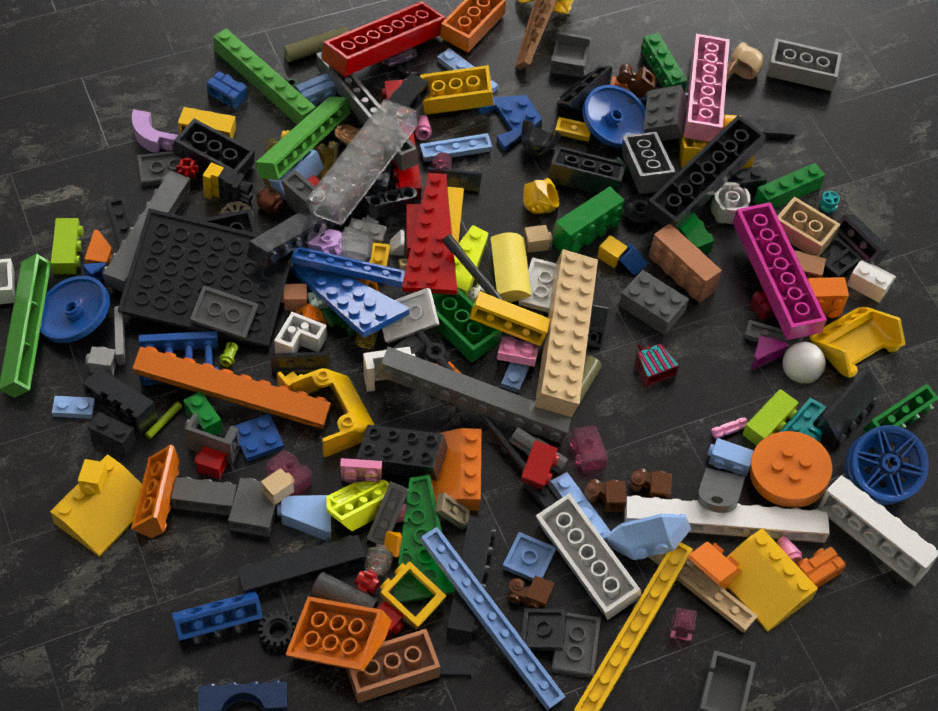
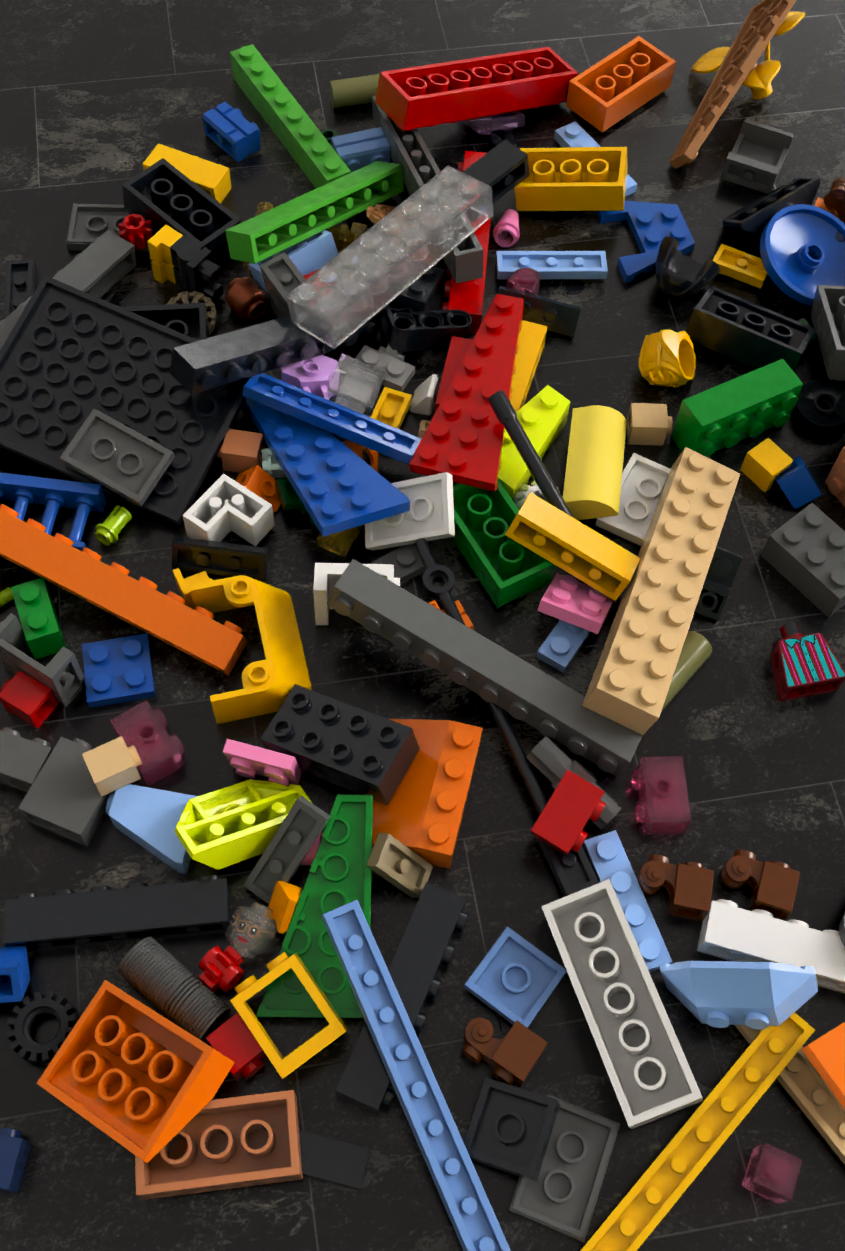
camera: 15 degrees right, 5 degrees up
(148, 136) = (98, 181): lavender arch -> none

